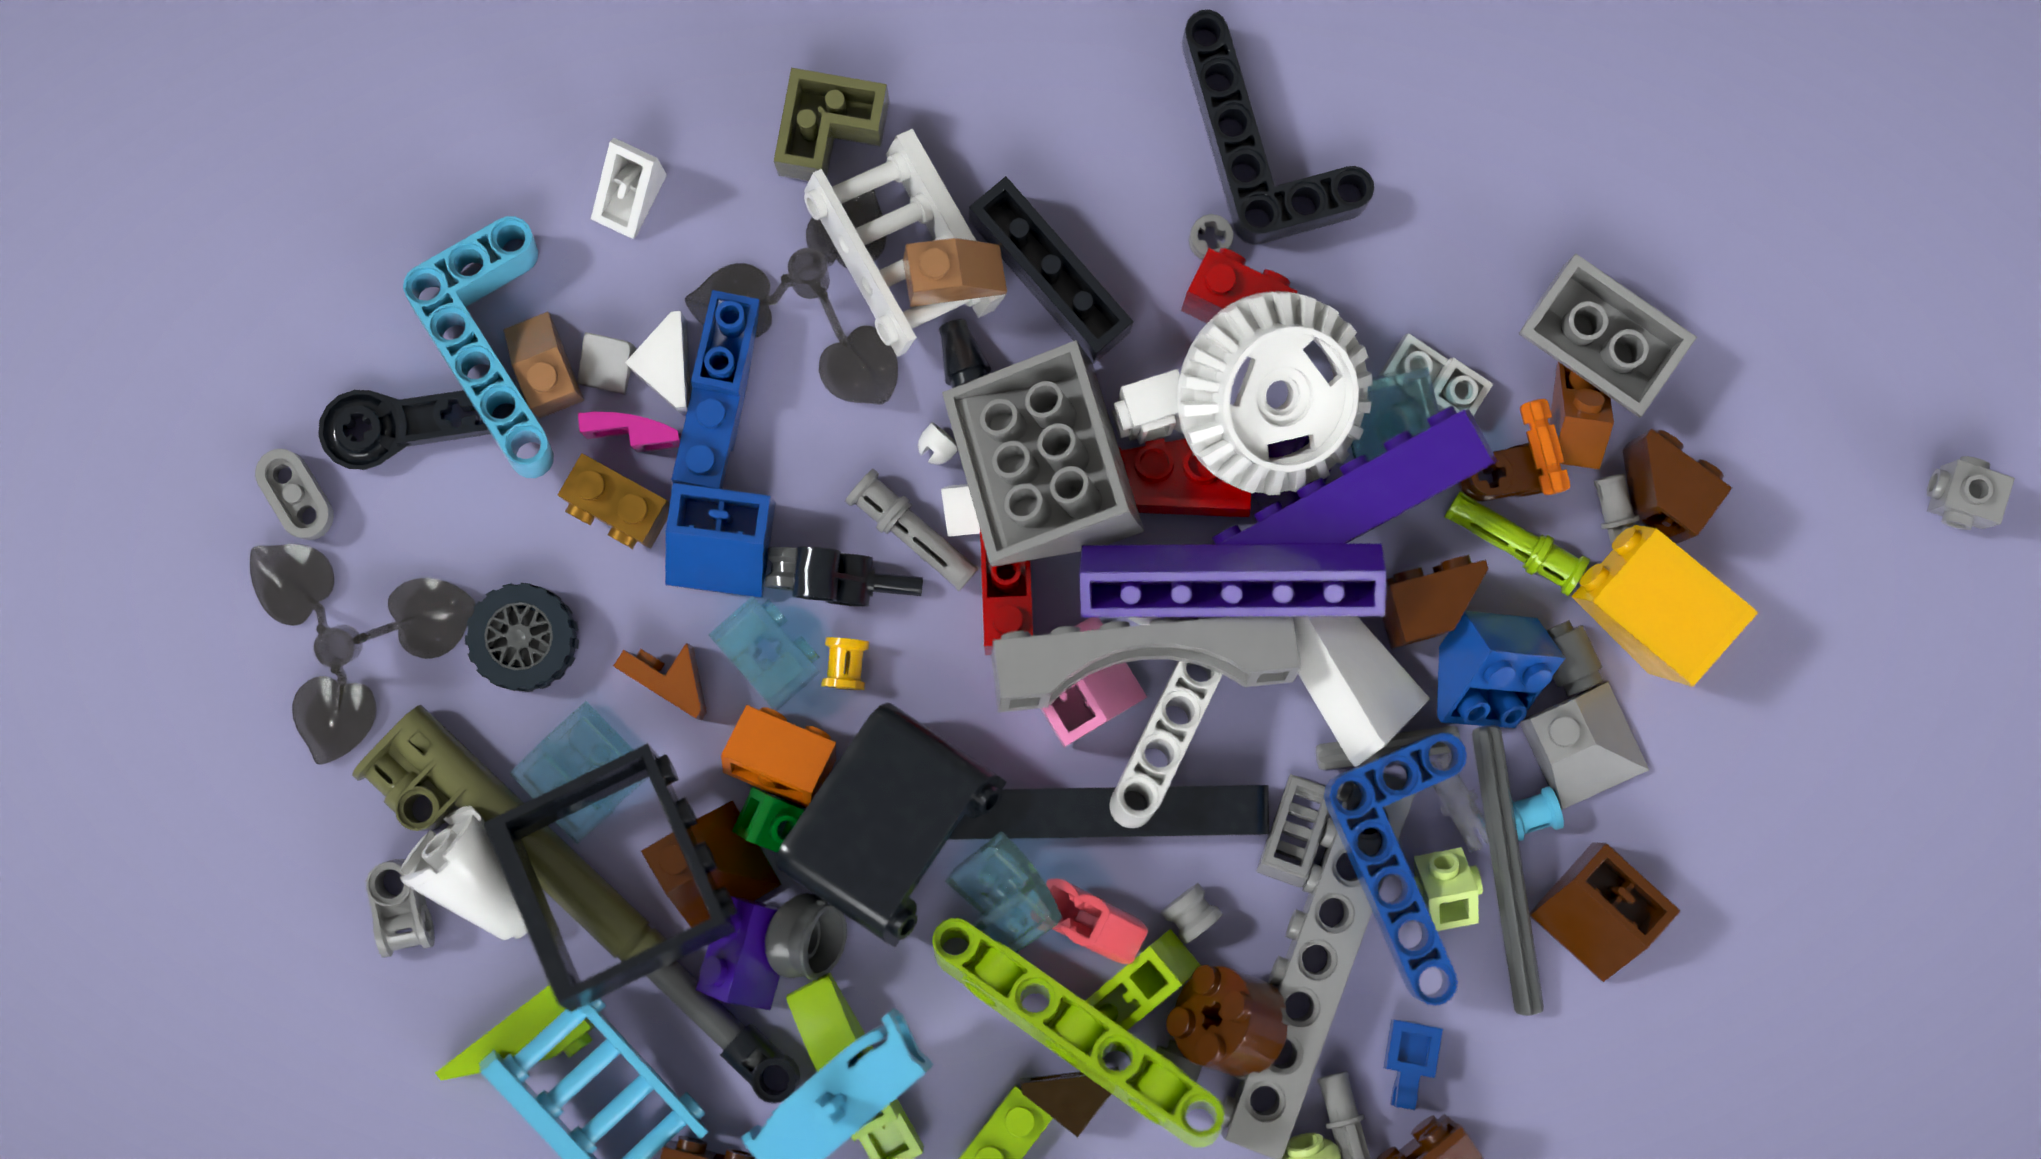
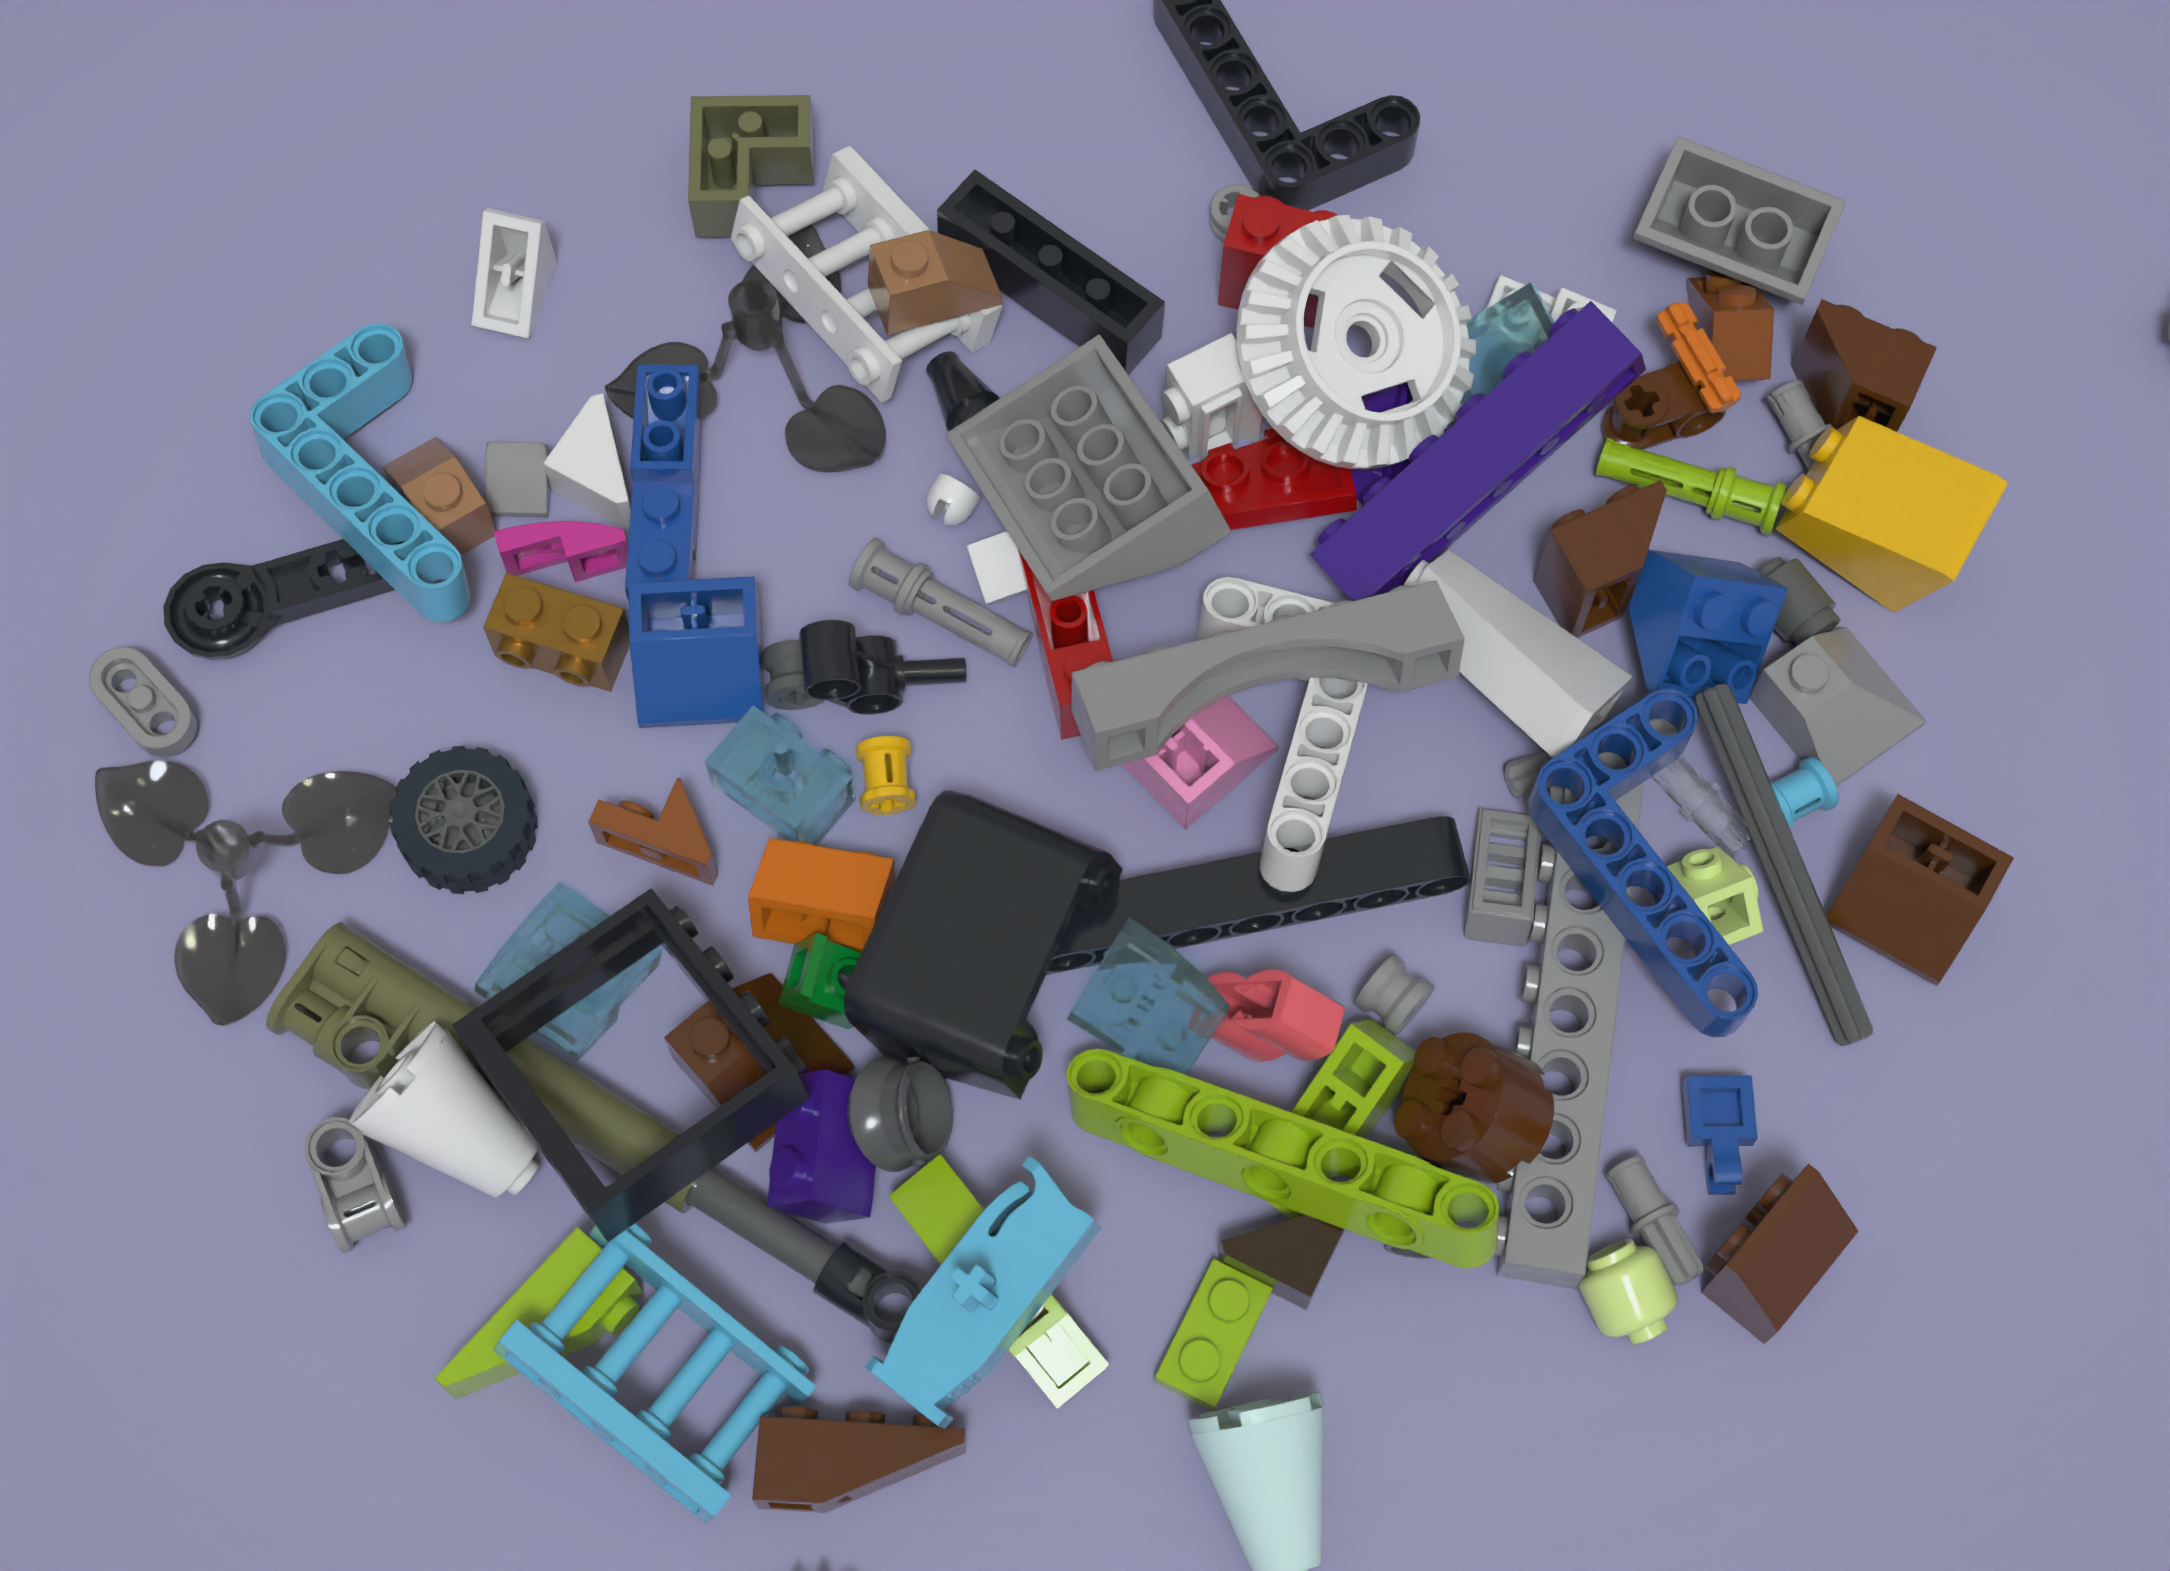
camera: 10 degrees left, 15 degrees down
(1232, 580) = (1355, 557): dark purple brick -> none

